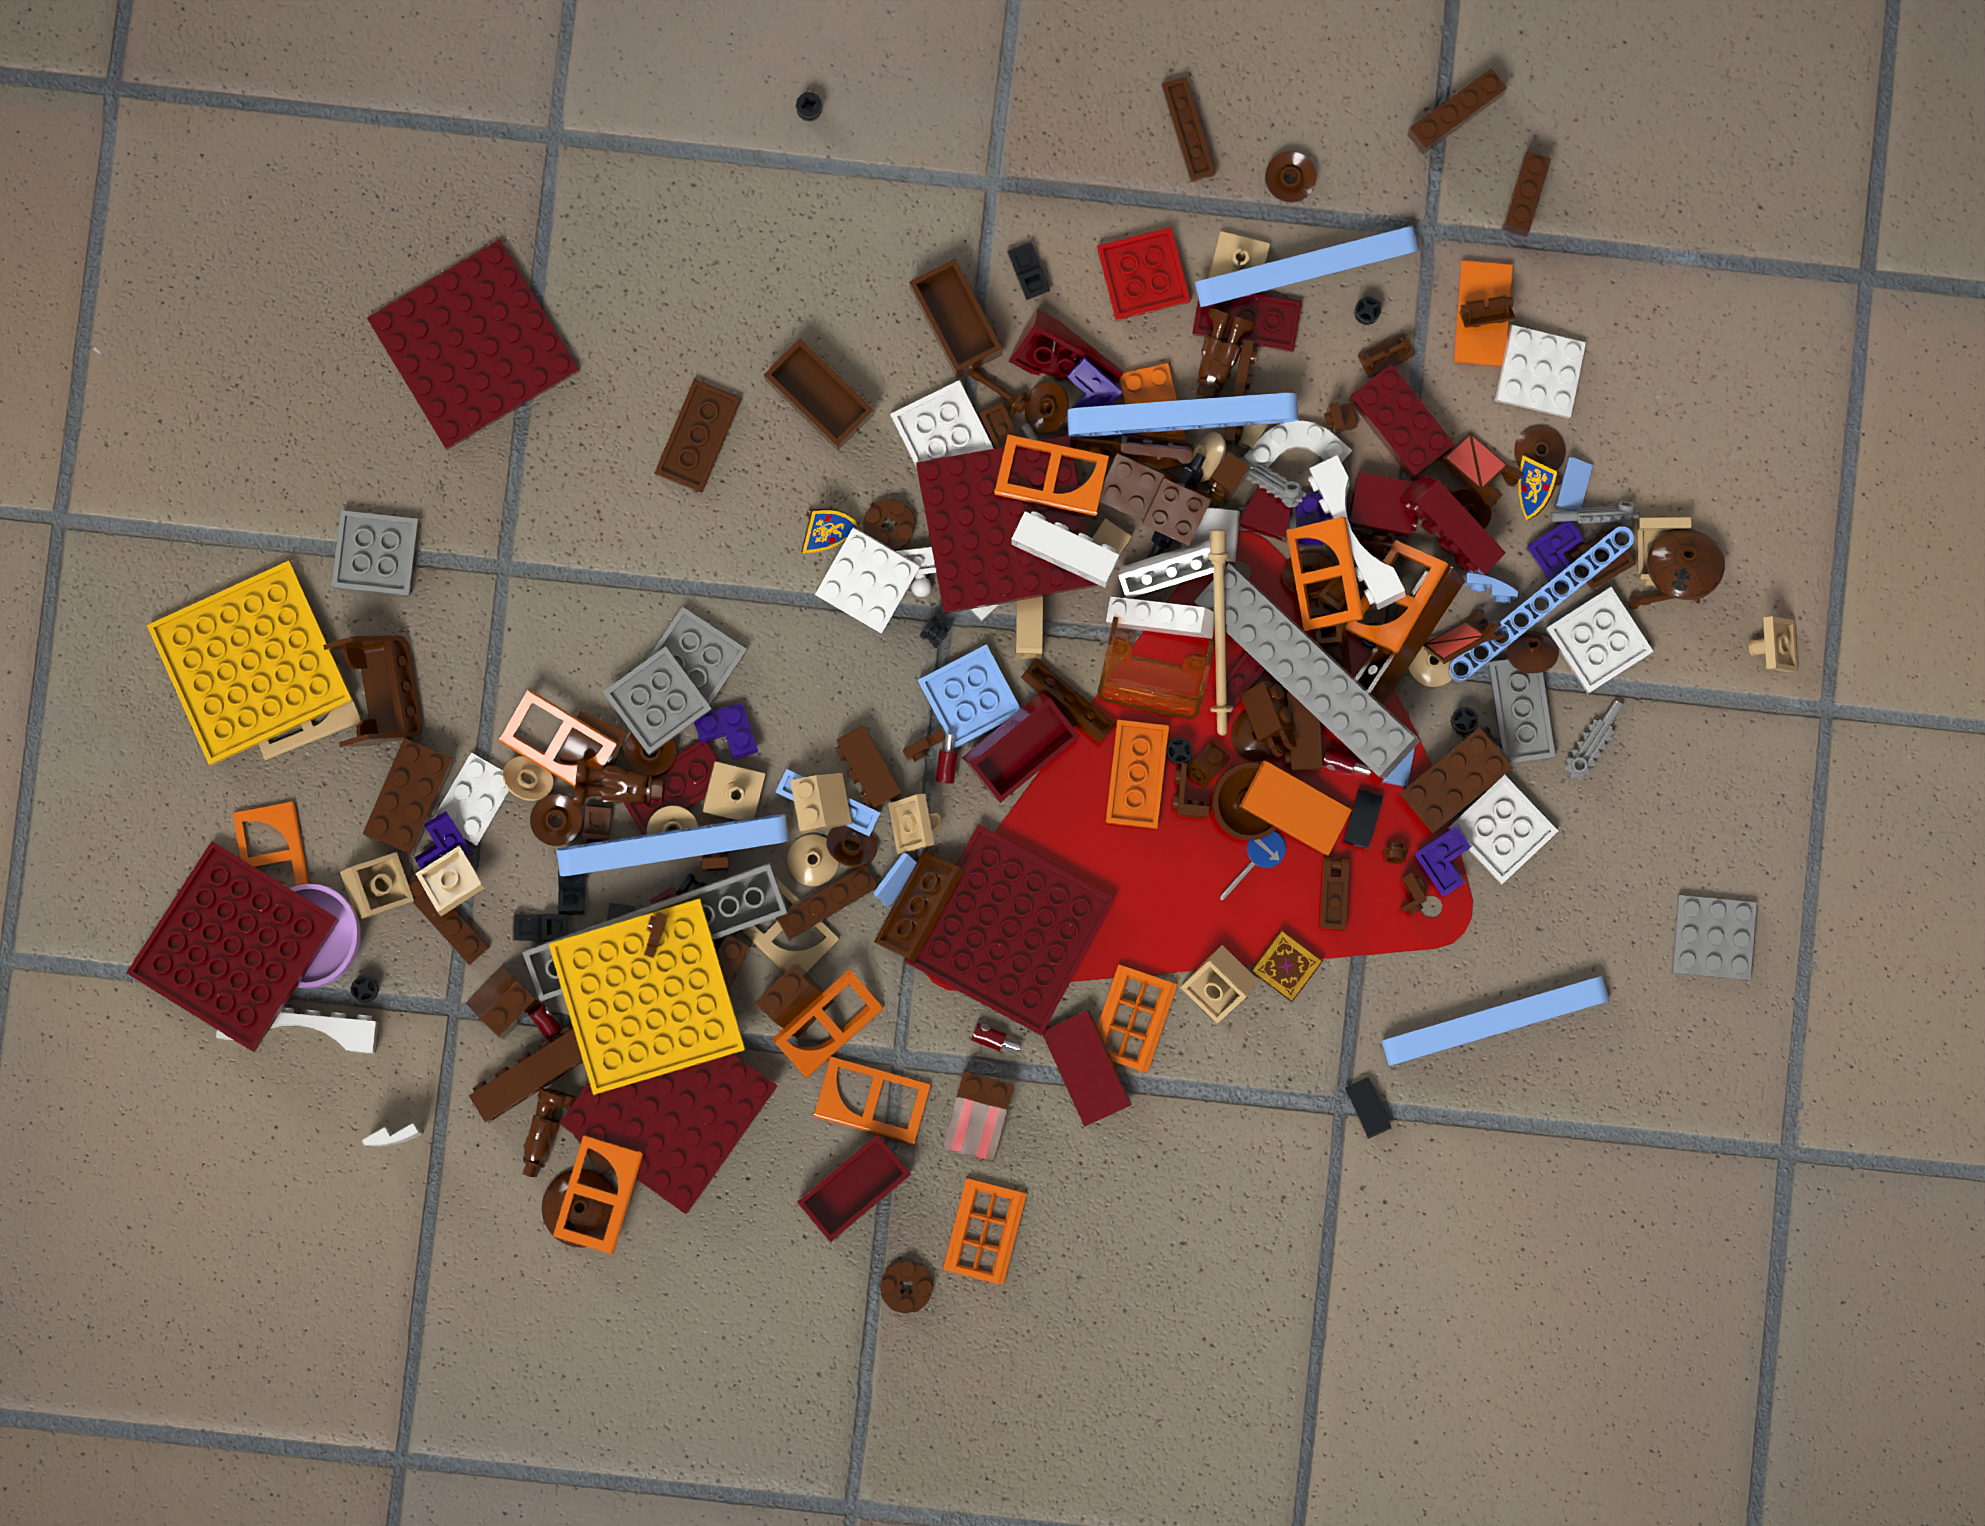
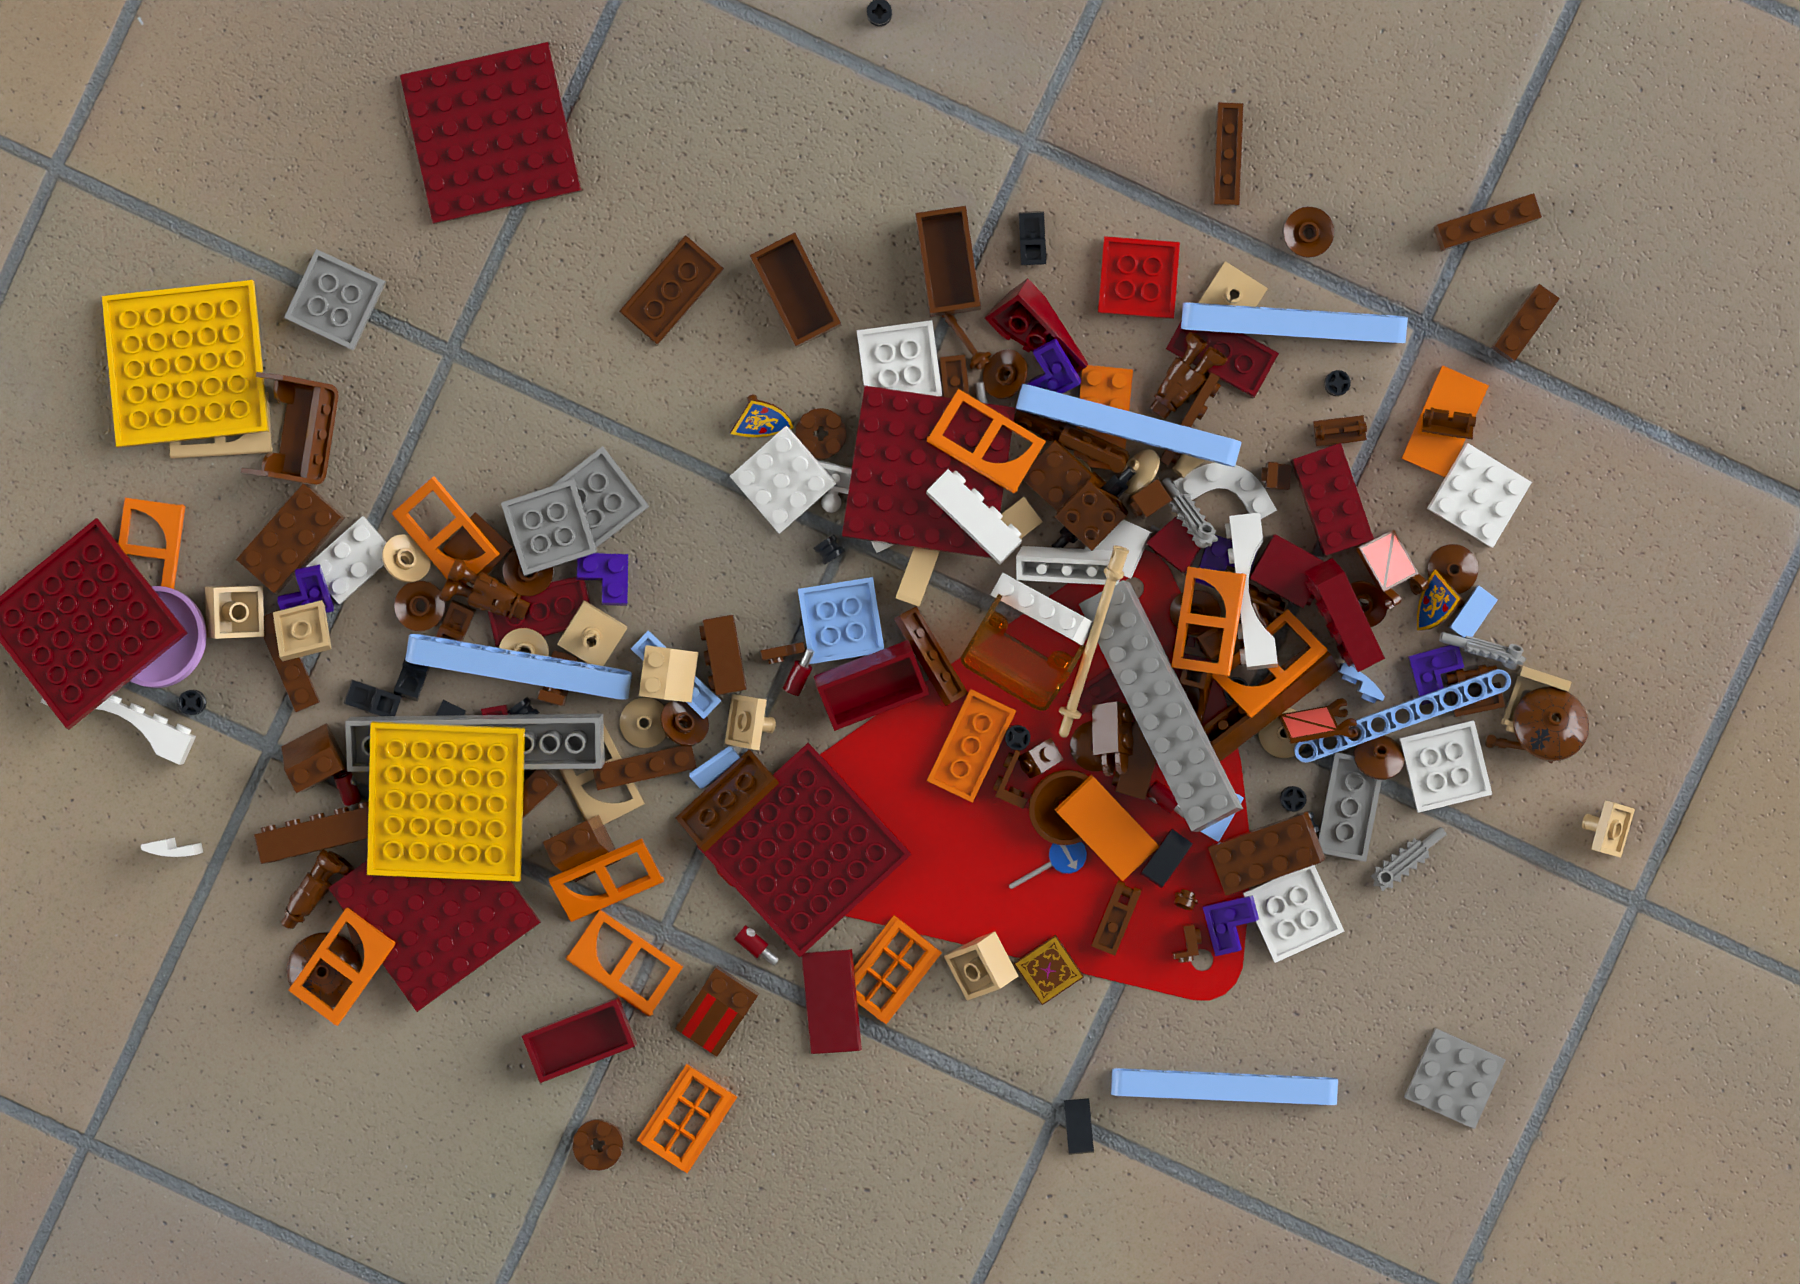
camera: 25 degrees right, 5 degrees up
(656, 927) = (473, 743): reddish brown plate -> none

